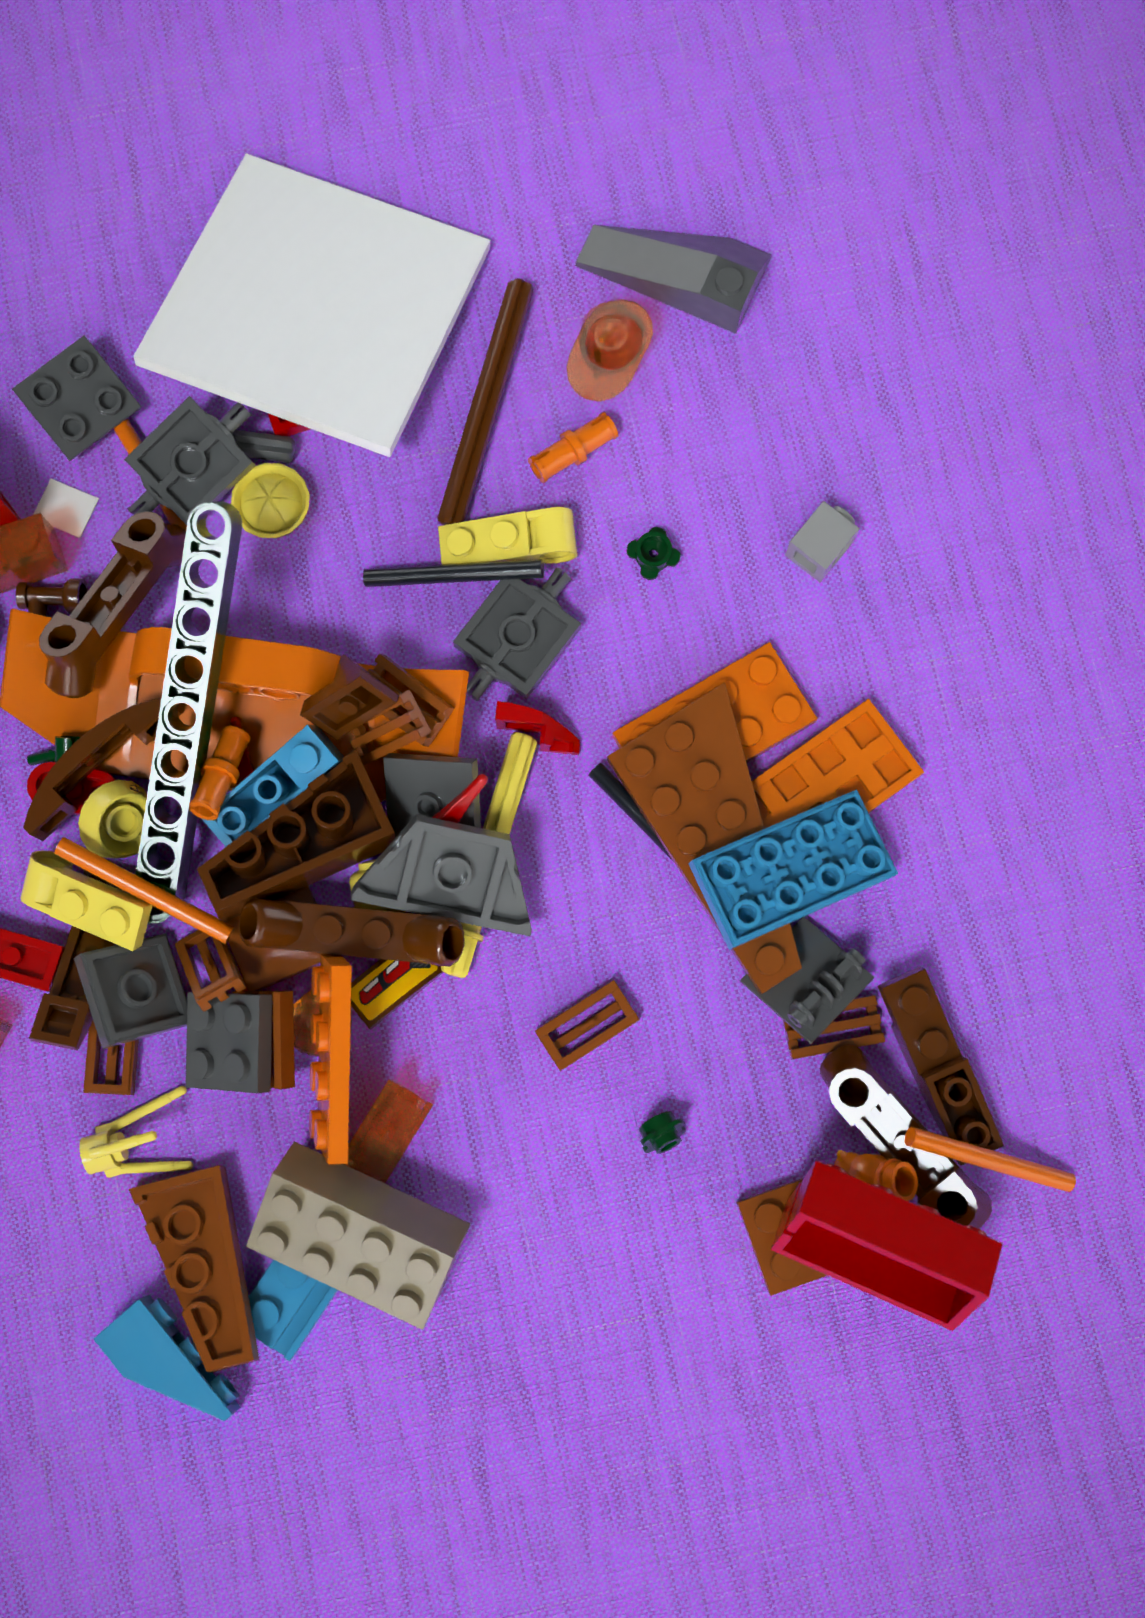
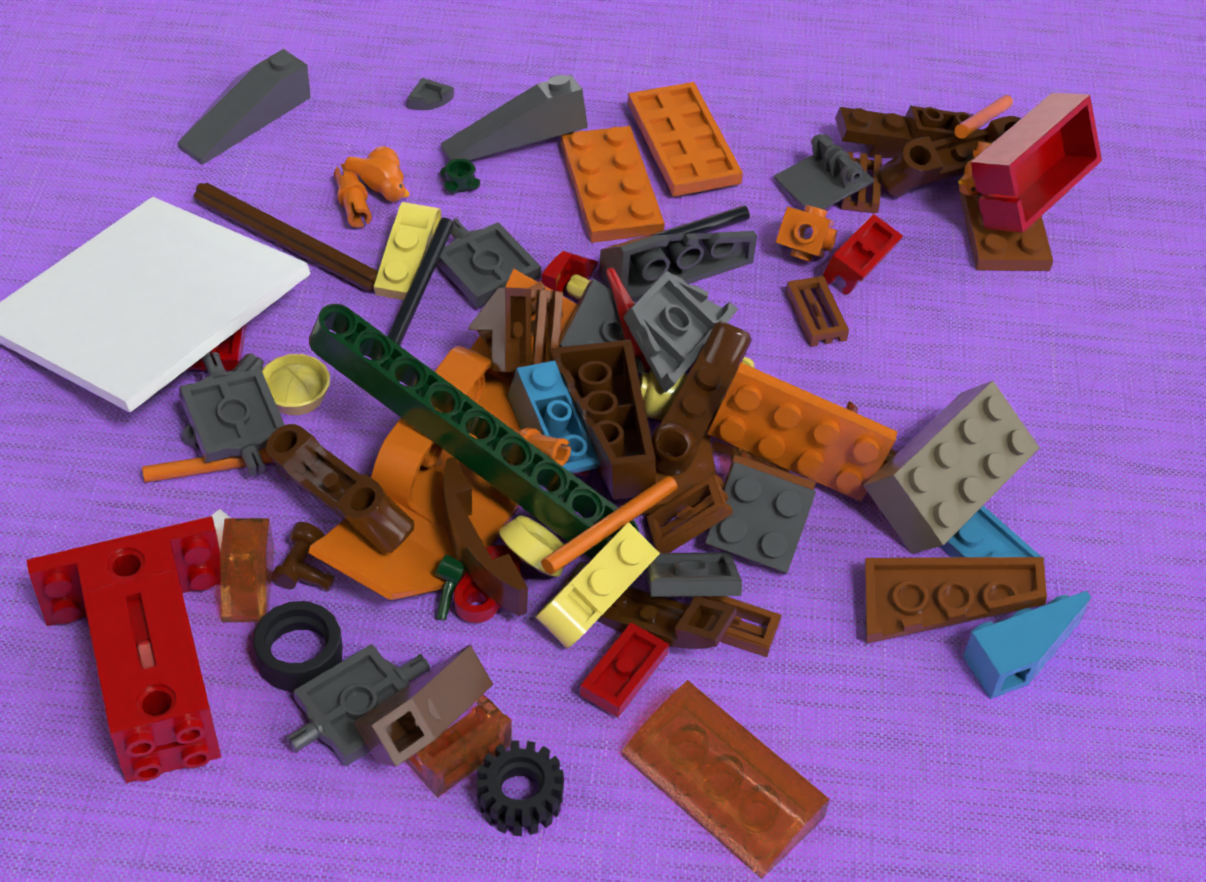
camera: 75 degrees left, 30 degrees down
(76, 398) = (123, 486): dark grey hinge -> none
(108, 1149) = (827, 643): light yellow plant -> none
(571, 809) = (688, 256): none -> dark grey wedge
(608, 349) = (283, 147): clear orange piece -> none
(616, 466) = (380, 172): none -> orange animal
(661, 1133) = (915, 284): dark green plate -> none
(683, 1059) = (862, 253): none -> red hinge
(692, 982) = (793, 232): none -> orange brick
(698, 798) = (672, 191): dark orange wing -> none
(770, 595) = (532, 116): none -> dark grey wedge
(787, 465) = (429, 95): none -> dark grey tile
(792, 869) = (743, 148): dark azure tile -> none
(822, 540) = (497, 83): light grey brick -> none

